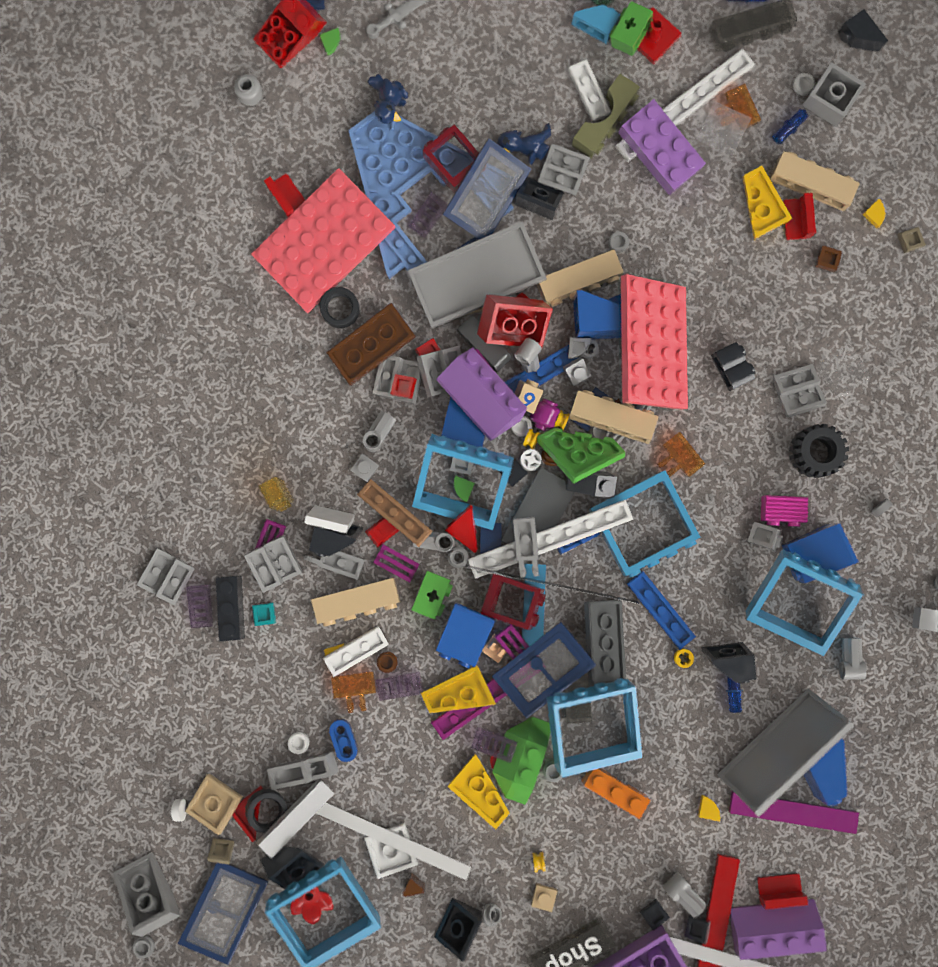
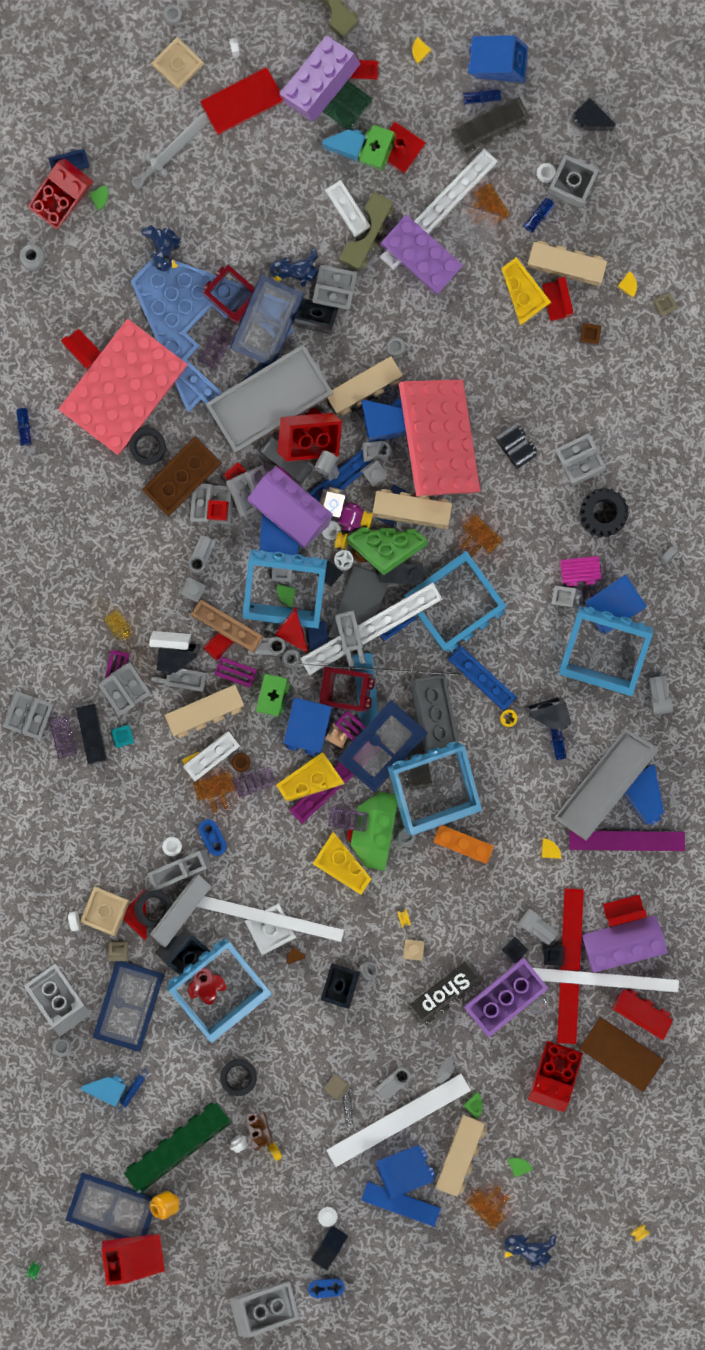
camera: 10 degrees left, 0 degrees up
(211, 267) = (24, 427): none -> clear blue axle

